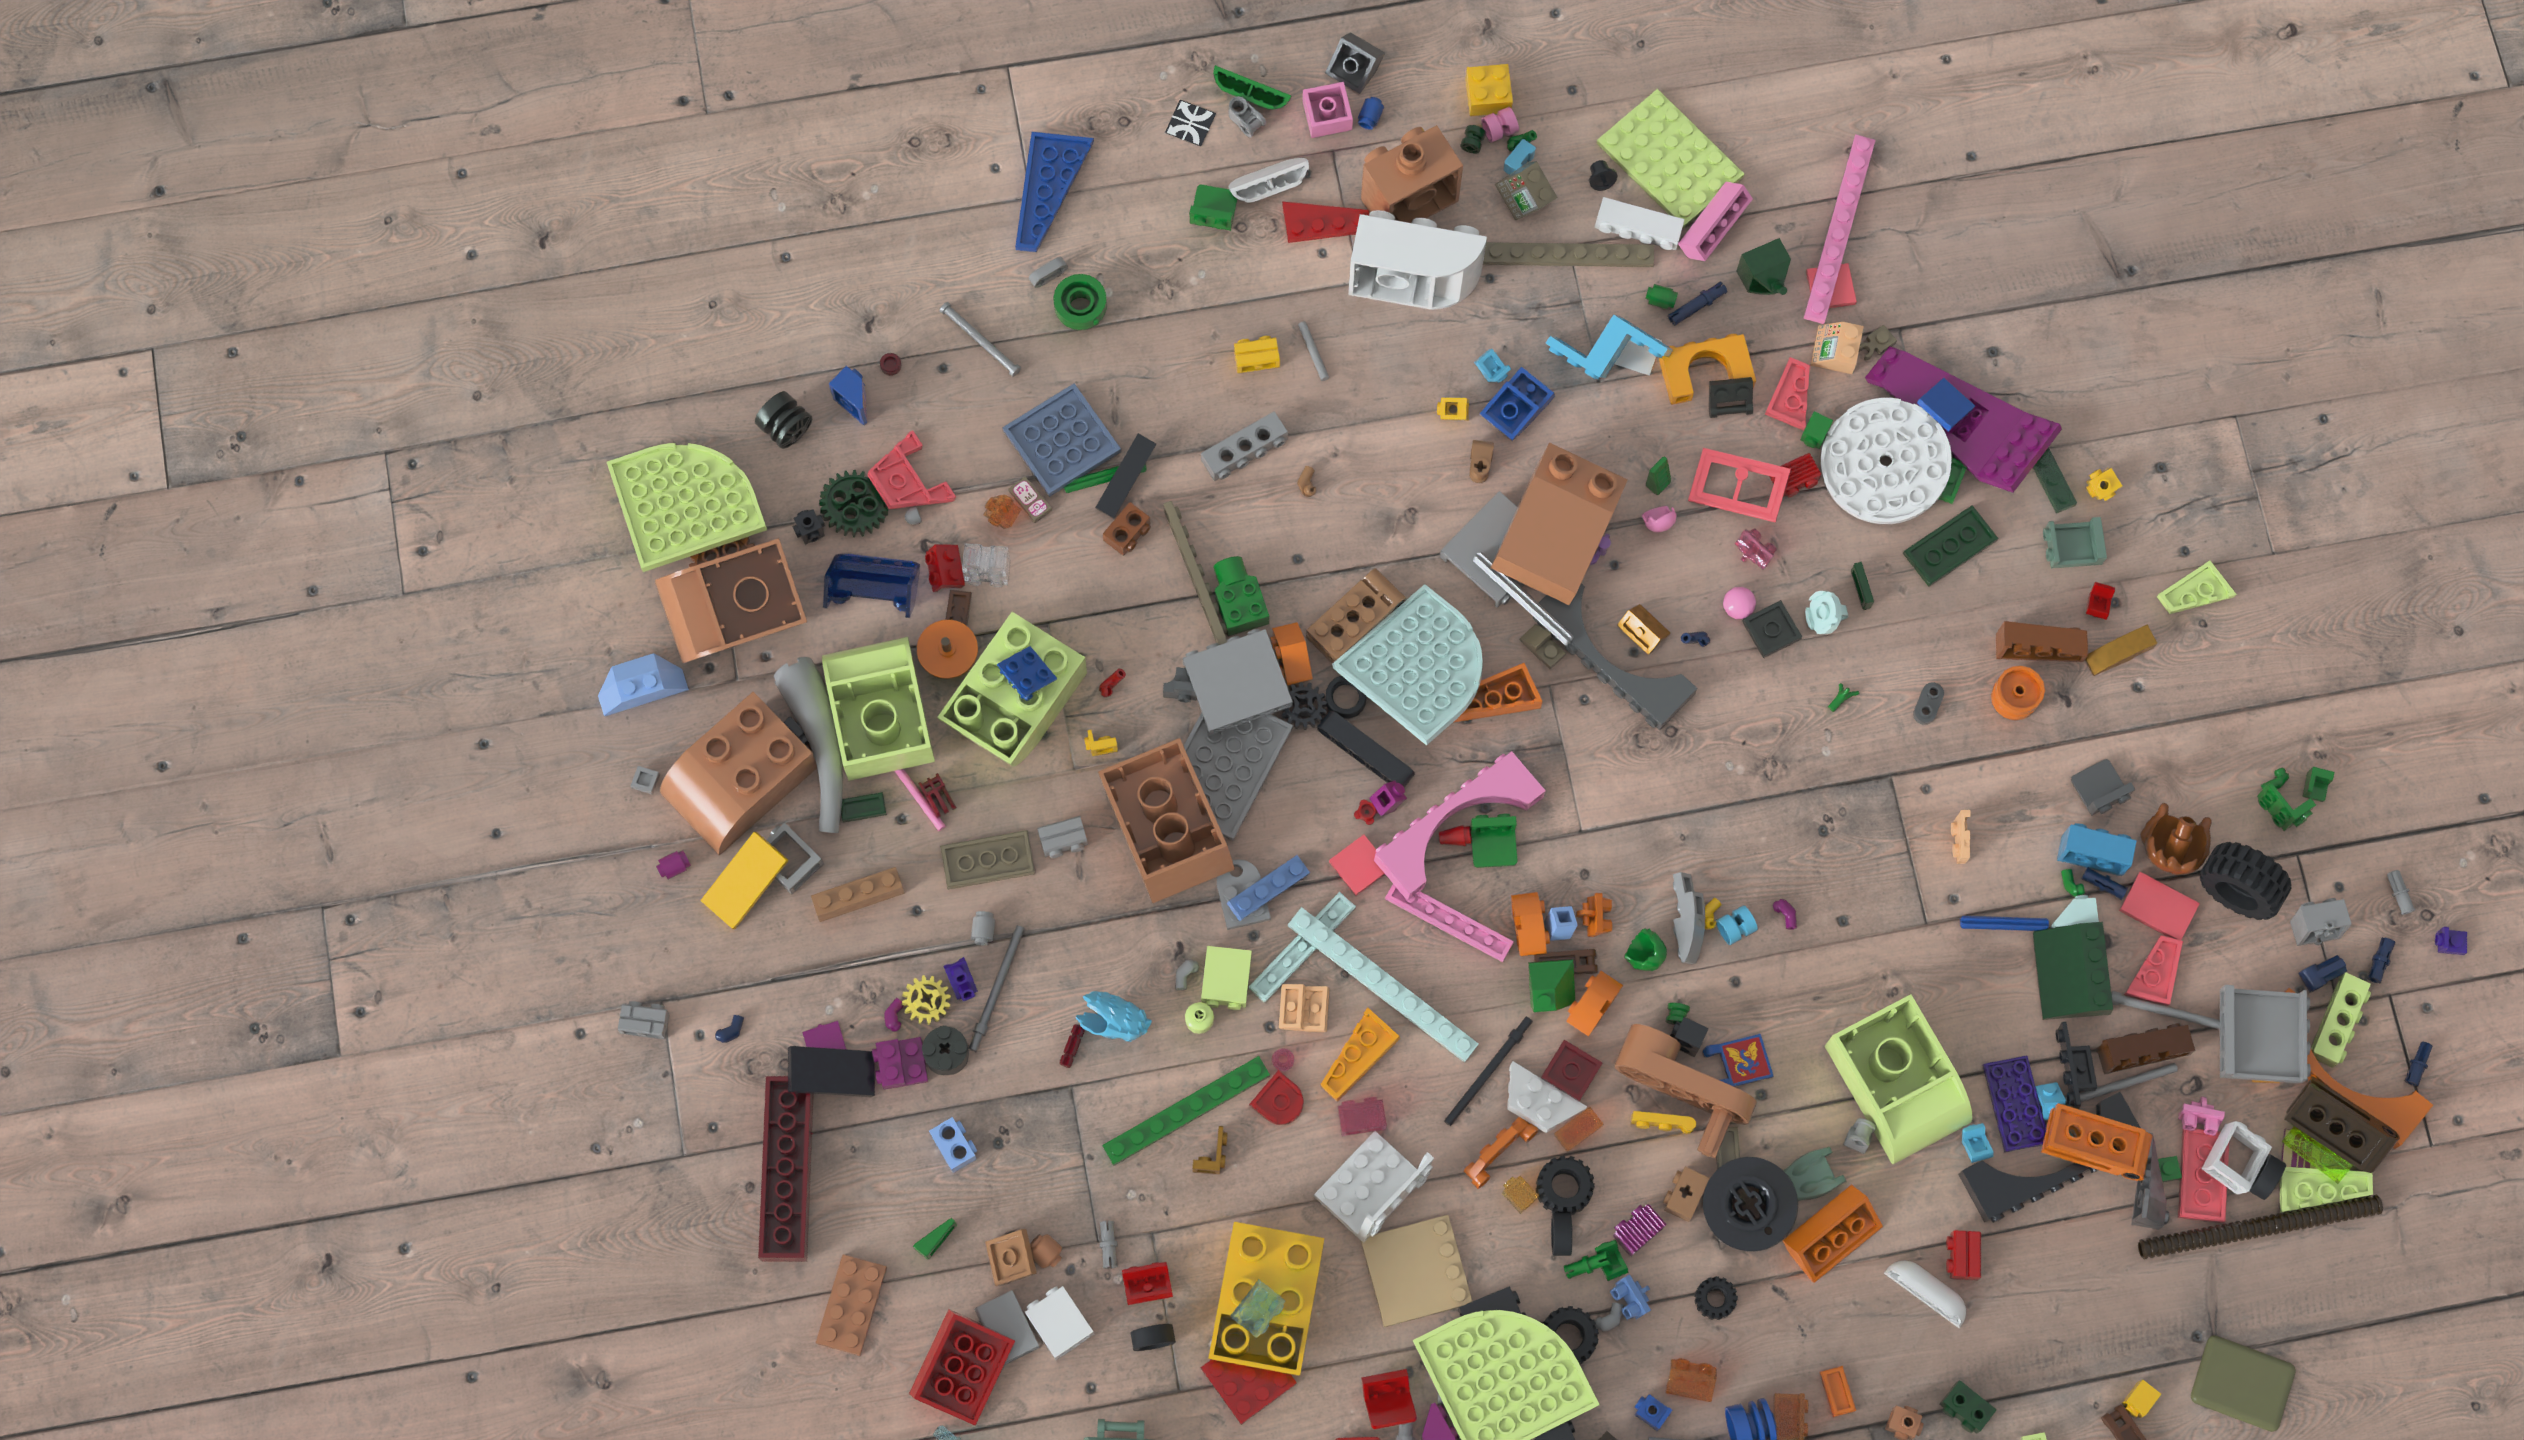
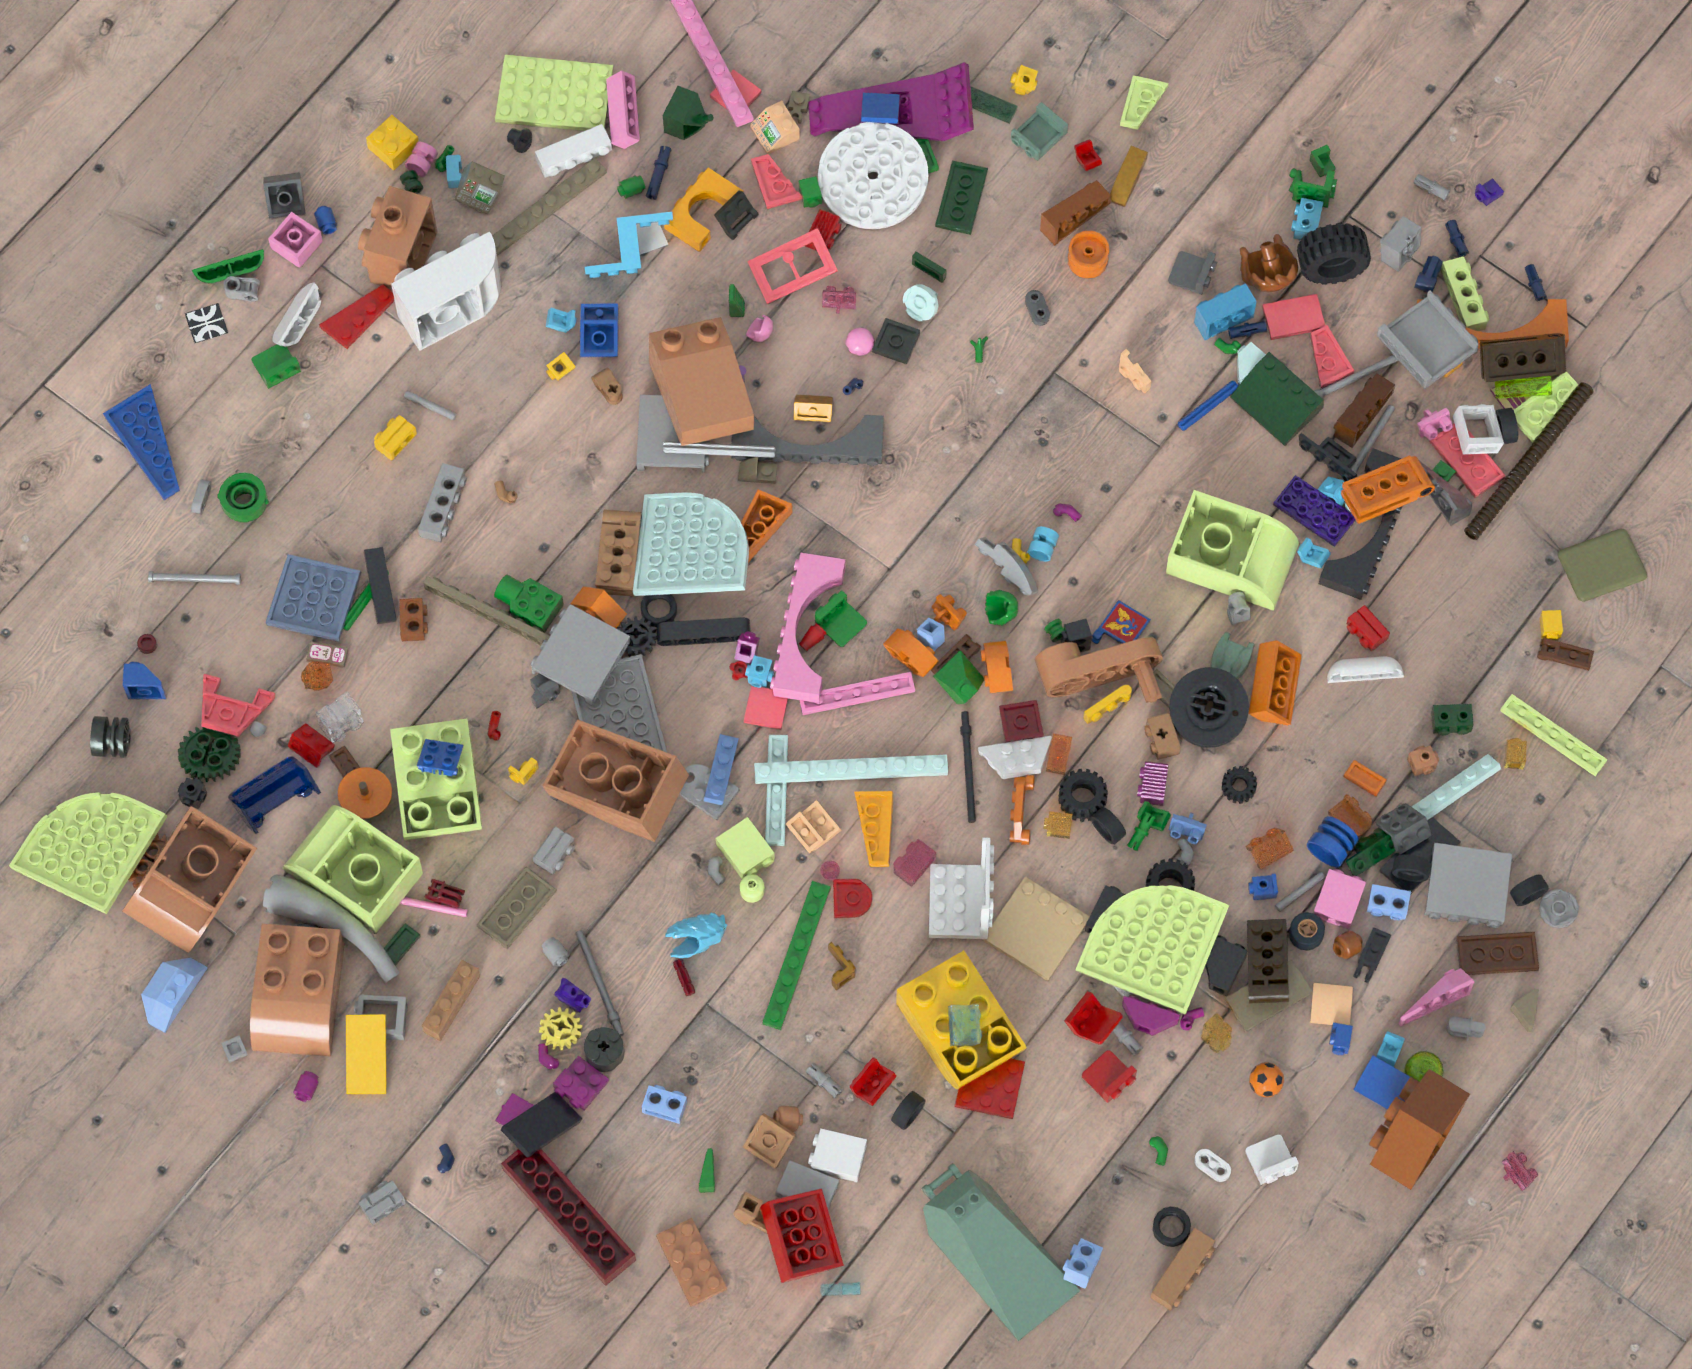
camera: 40 degrees left, 5 degrees down
(936, 1305) = (749, 1211): none -> medium nougat brick
(1380, 828) = (760, 672): none -> medium azure brick
(2254, 827) = (1308, 217): none -> medium azure brick

